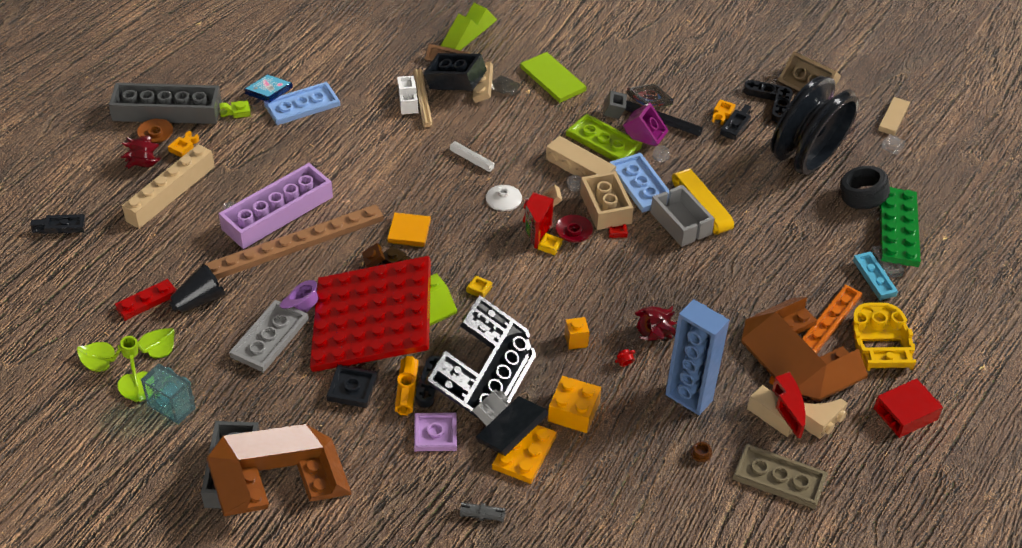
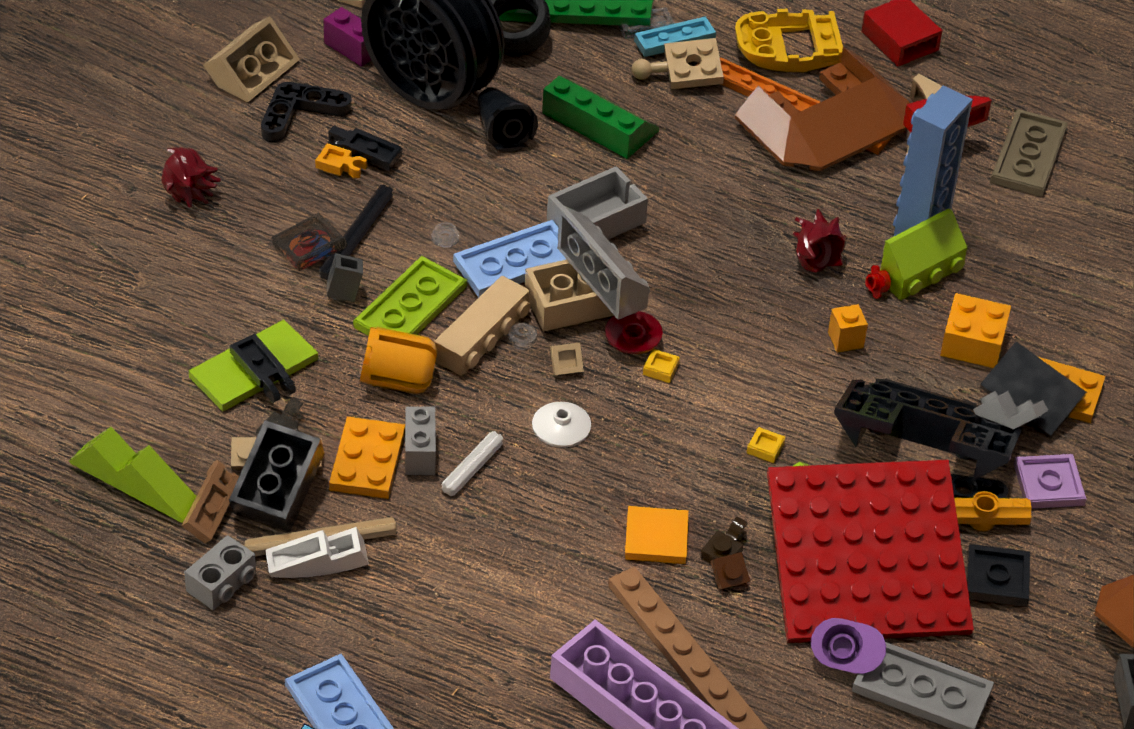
camera: 95 degrees left, 0 degrees up
(399, 59) = (220, 572): none -> light grey brick
(480, 117) = (367, 457): none -> light orange plate
(485, 132) = (420, 441): none -> light grey brick
(538, 217) = (636, 364): red slope -> none
(541, 117) = (398, 361): none -> light orange cylinder
(542, 73) = (262, 366): none -> black hinge
(608, 191) = (601, 264): none -> light grey slope
(645, 379) = (924, 254): none -> lime slope
(646, 125) = (390, 245): magenta slope -> none
(697, 46) = (188, 176): none -> dark red hair
(701, 452) = (1015, 216): reddish brown plate -> none
(723, 220) = (531, 198): yellow beam -> none
(767, 178) = (506, 120): none -> black cone
(783, 229) = (596, 117): none -> green slope
(834, 273) = (676, 64): none -> tan plate

